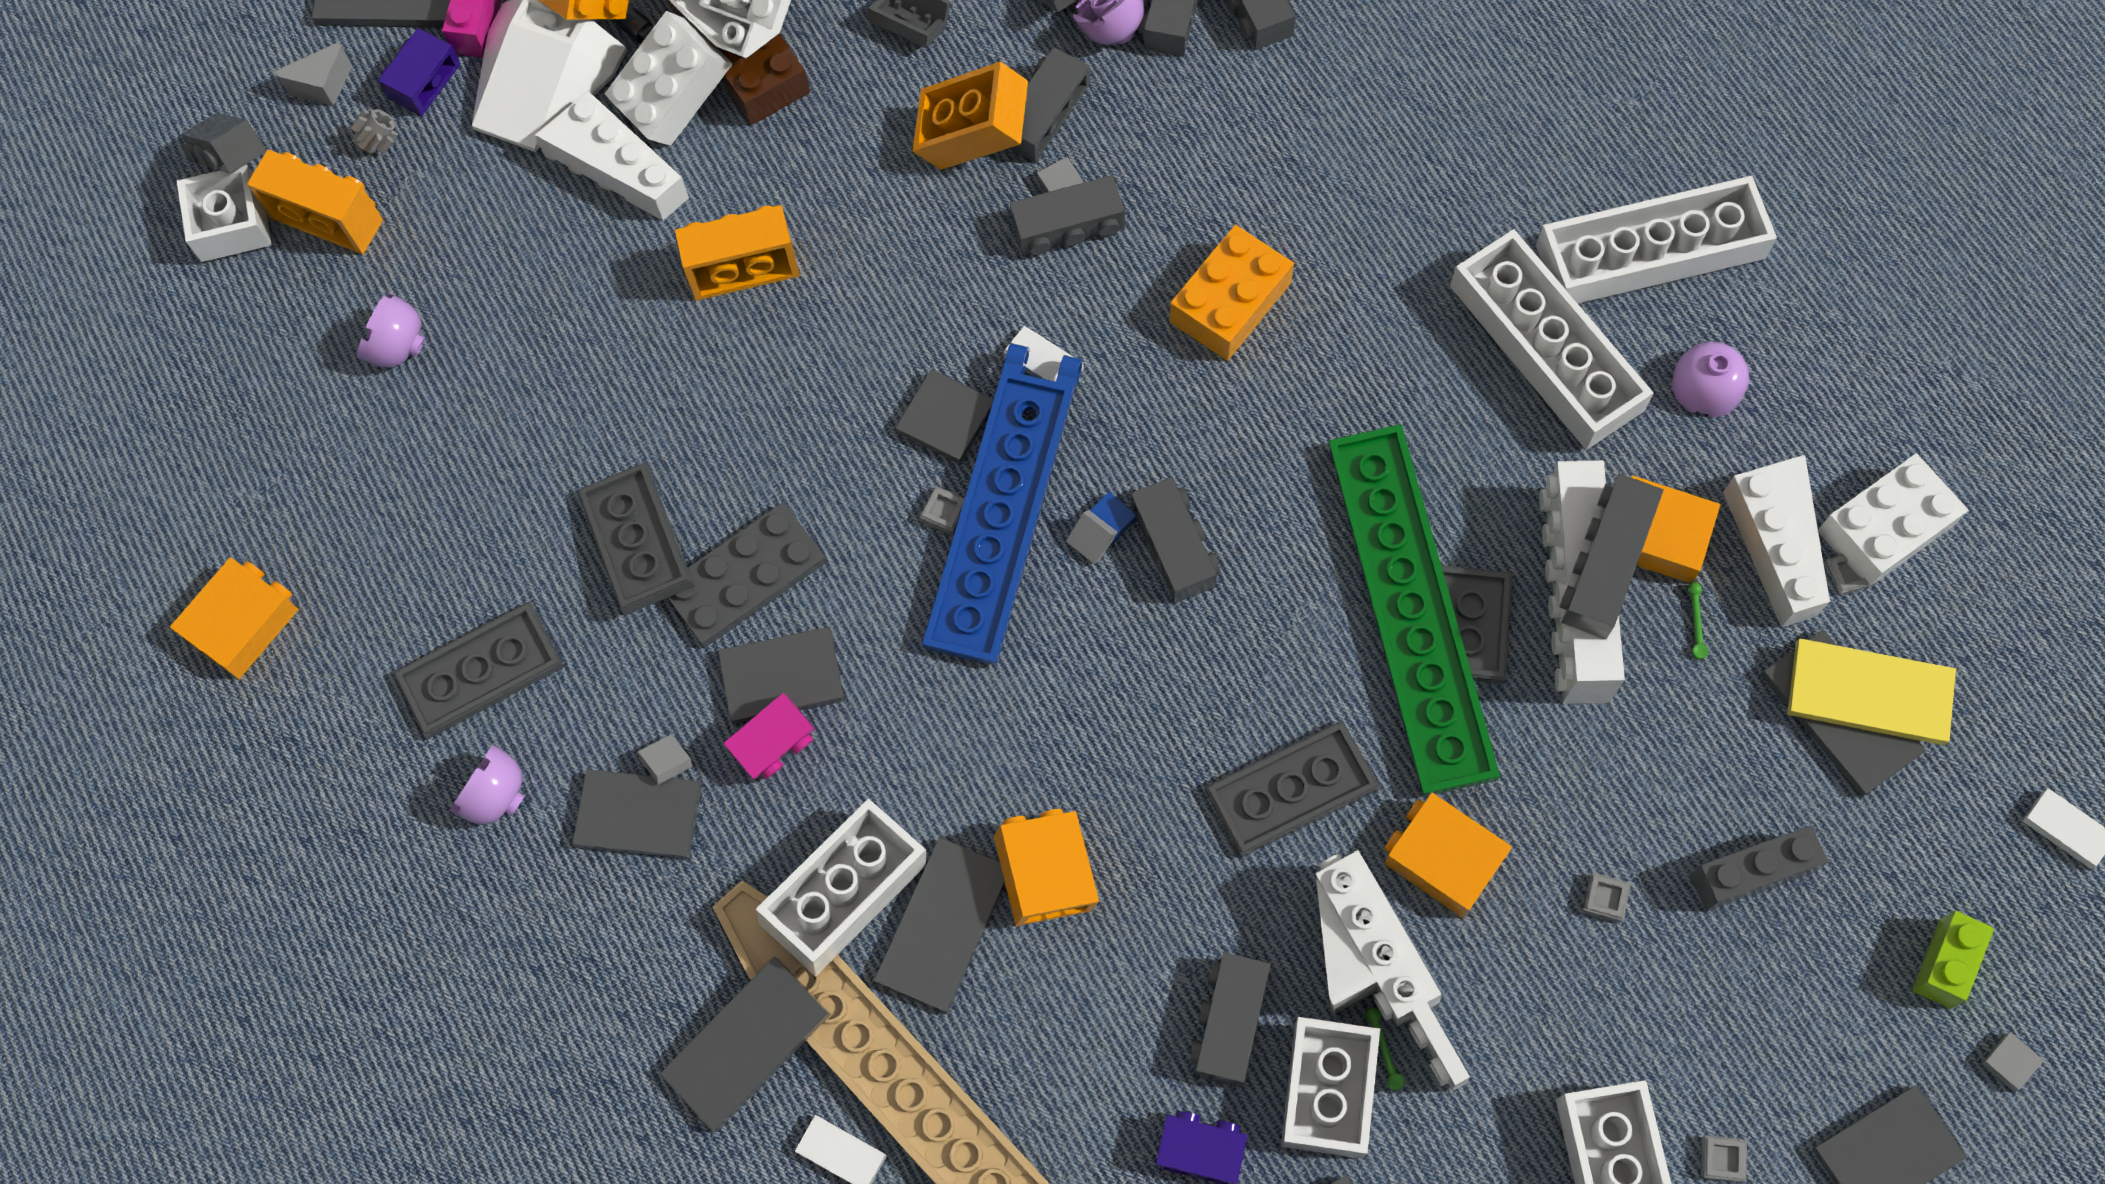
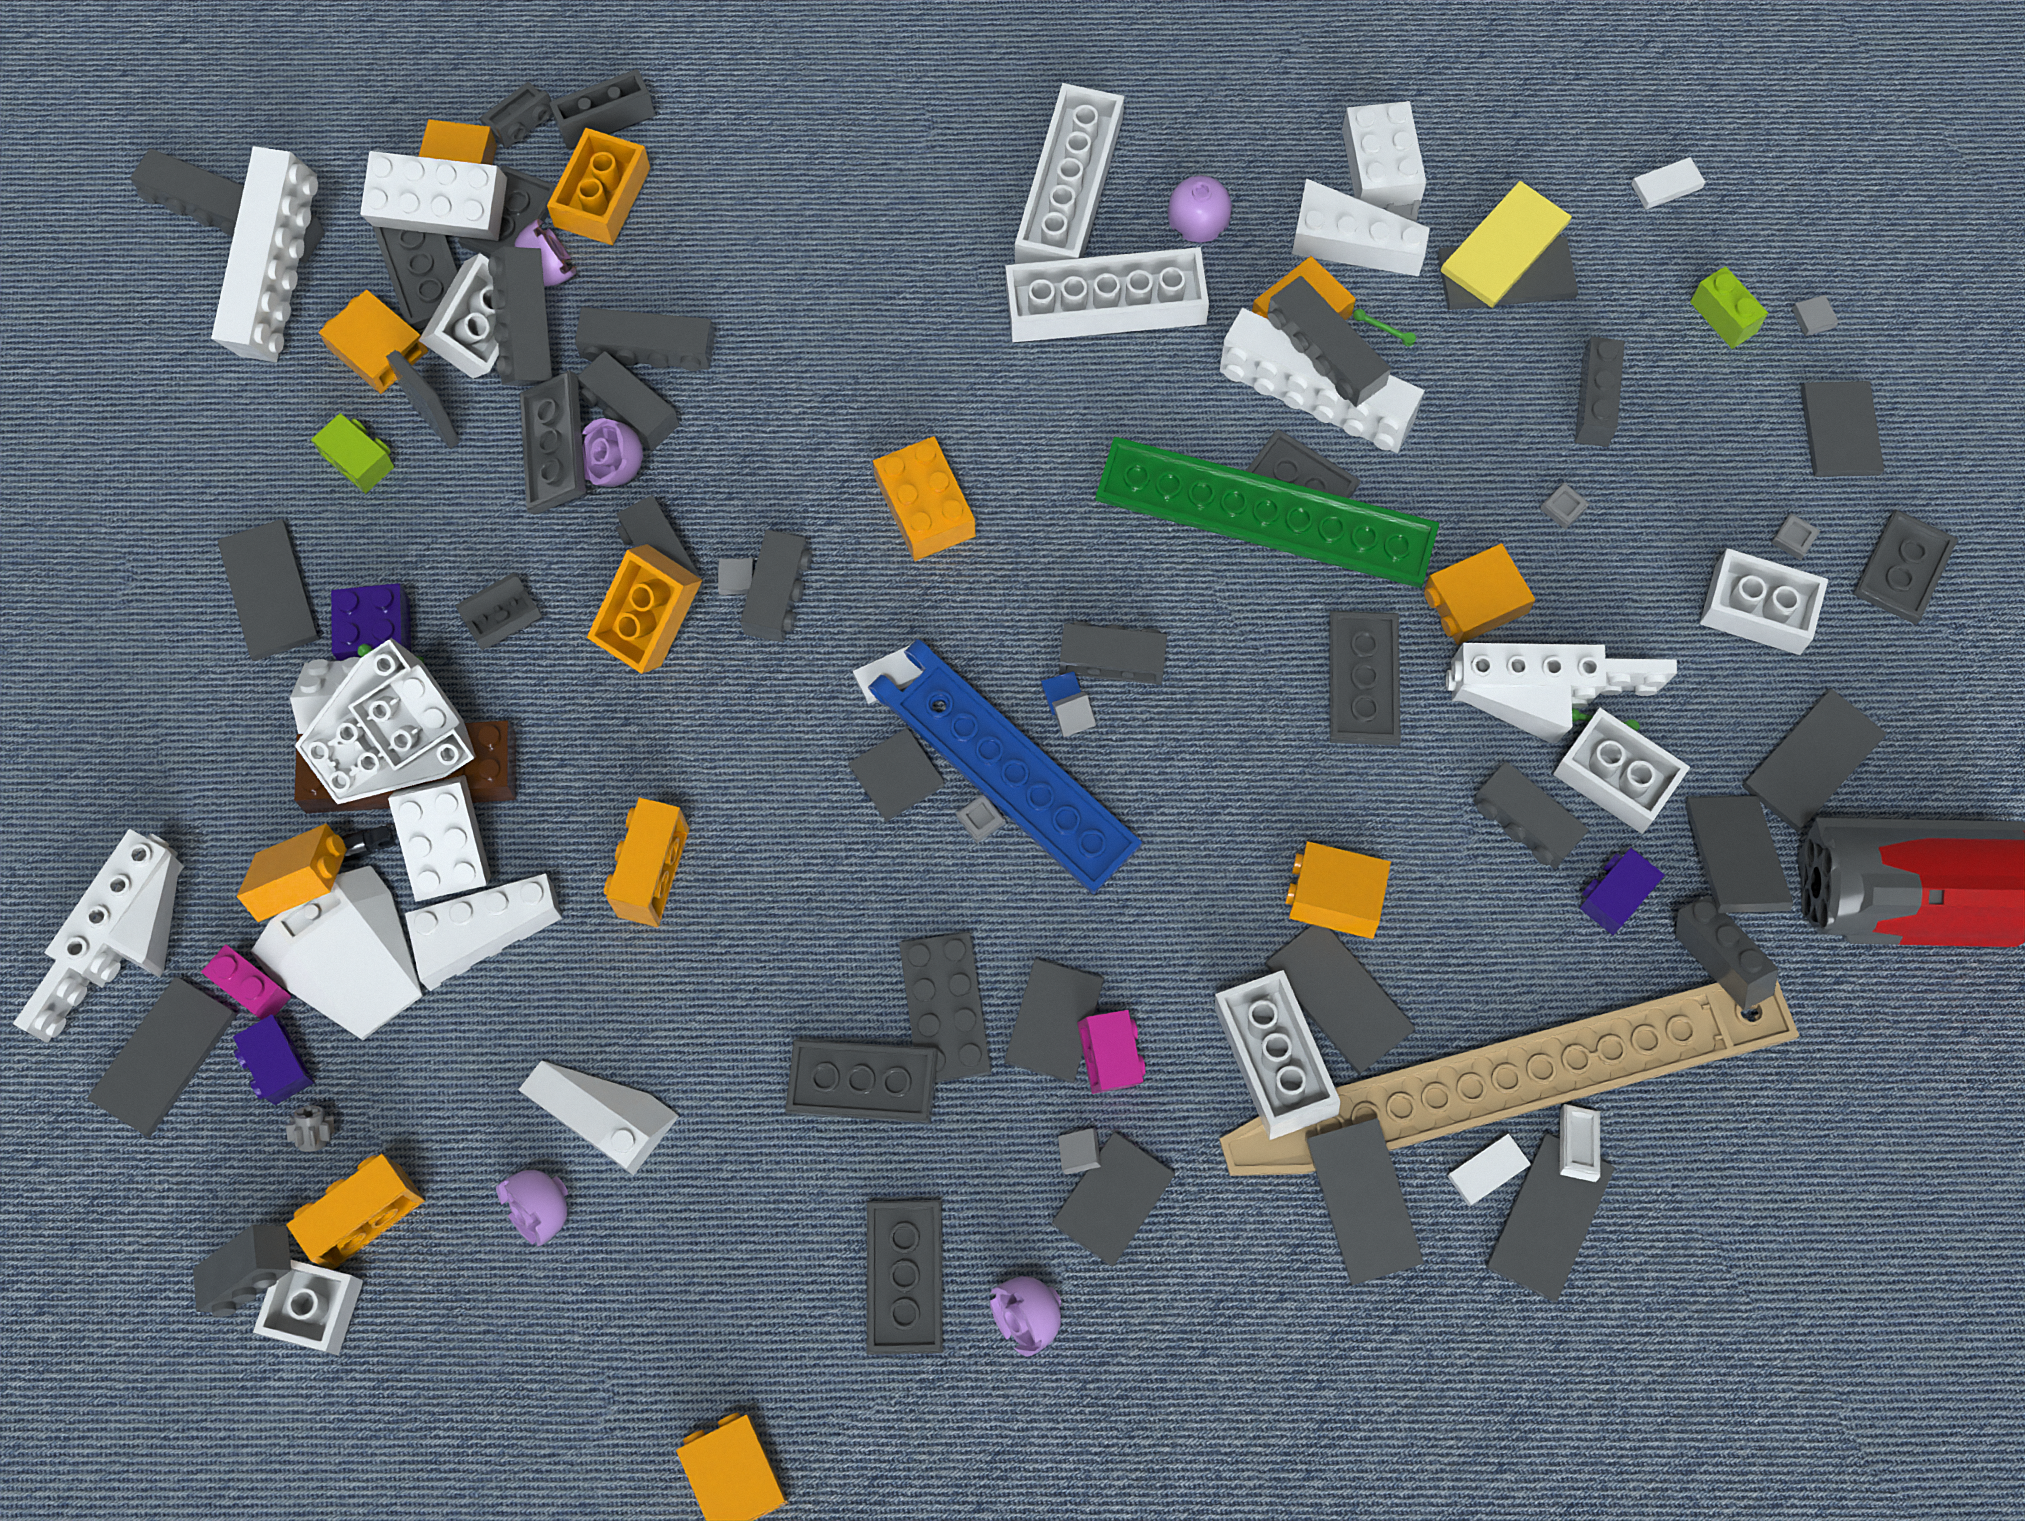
camera: 65 degrees left, 0 degrees up
(317, 75) = (213, 1158): light grey slope -> none
(499, 349) = (607, 1115): none -> white wedge

